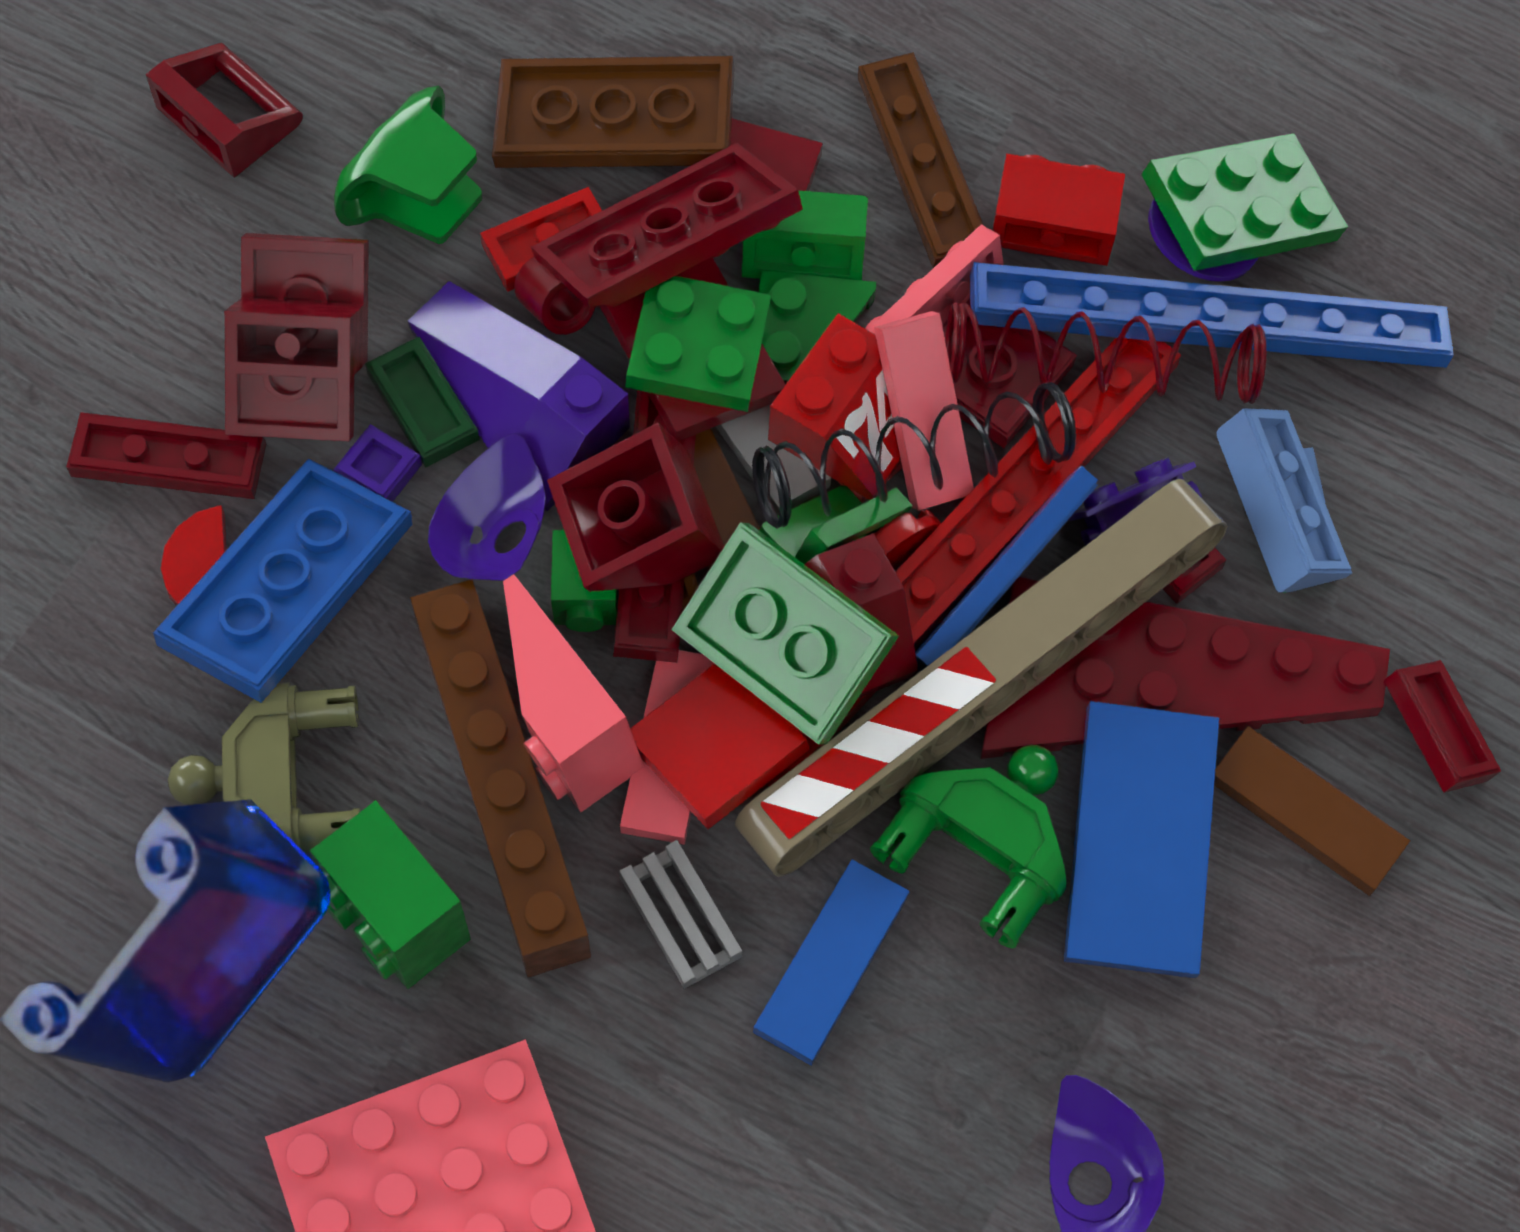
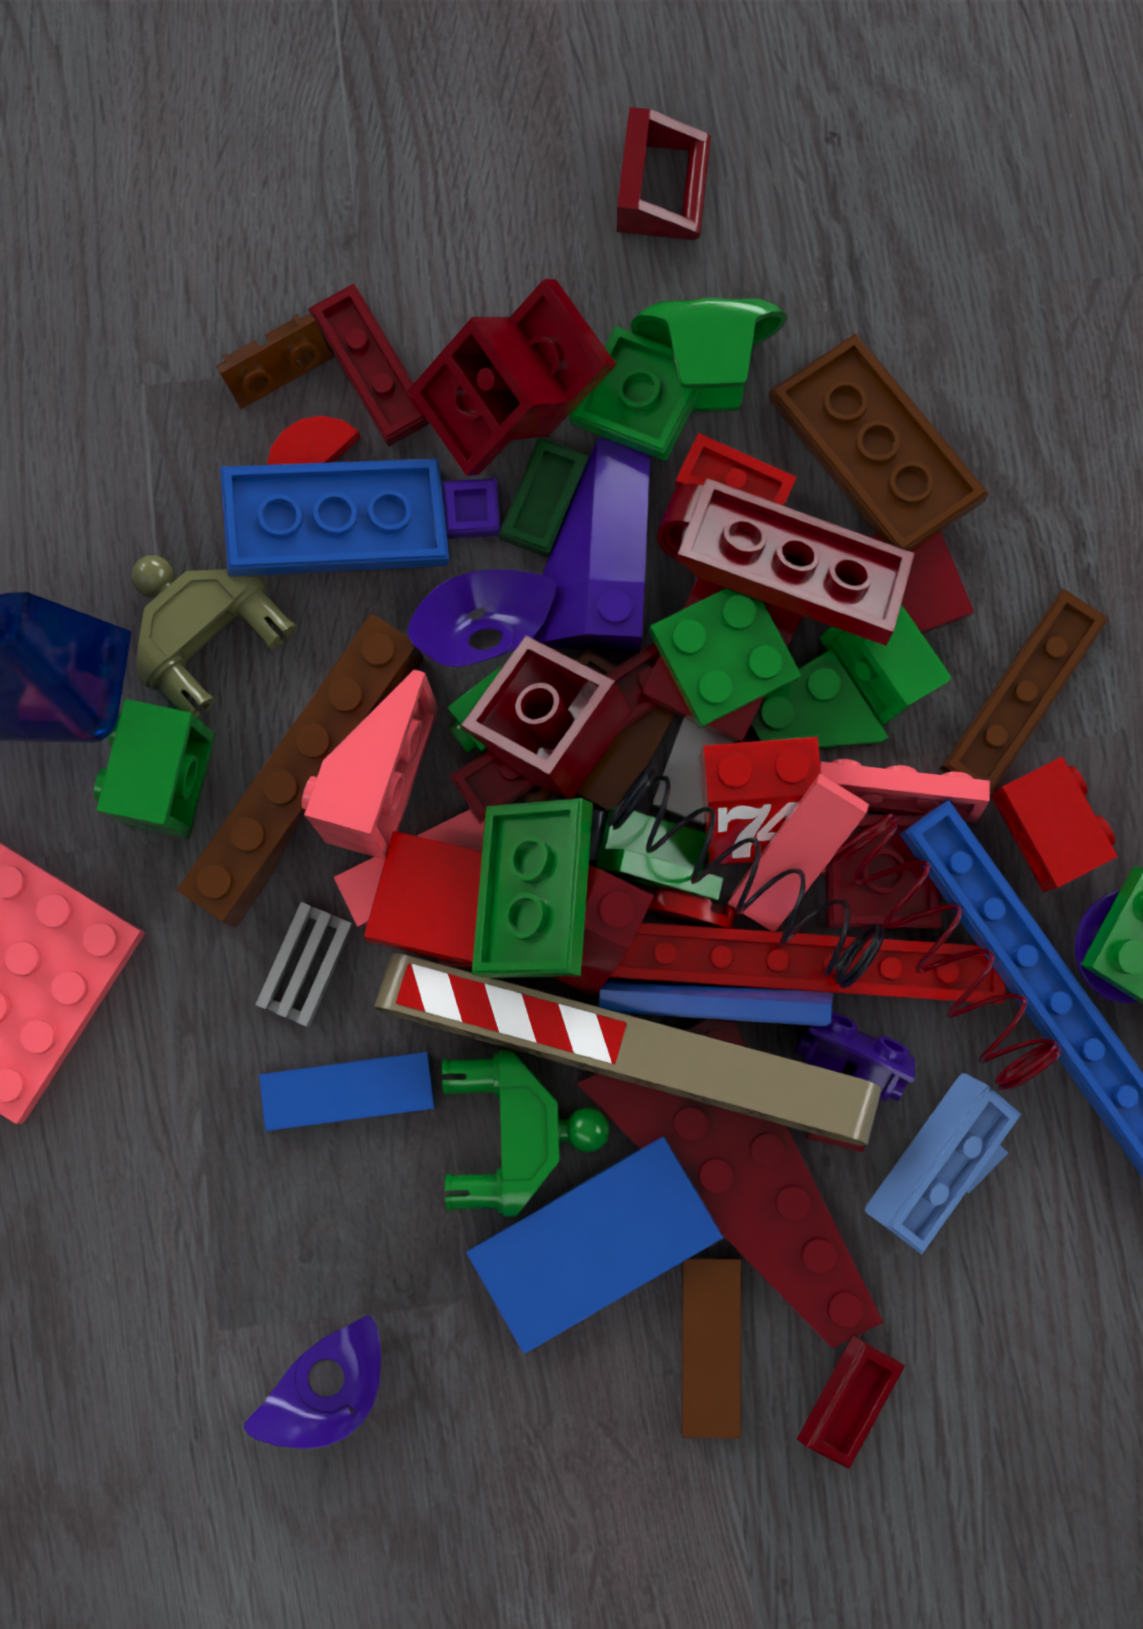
camera: 60 degrees right, 15 degrees up
(92, 509) = (287, 355): none -> reddish brown hinge
(411, 257) = (640, 397): none -> green tile

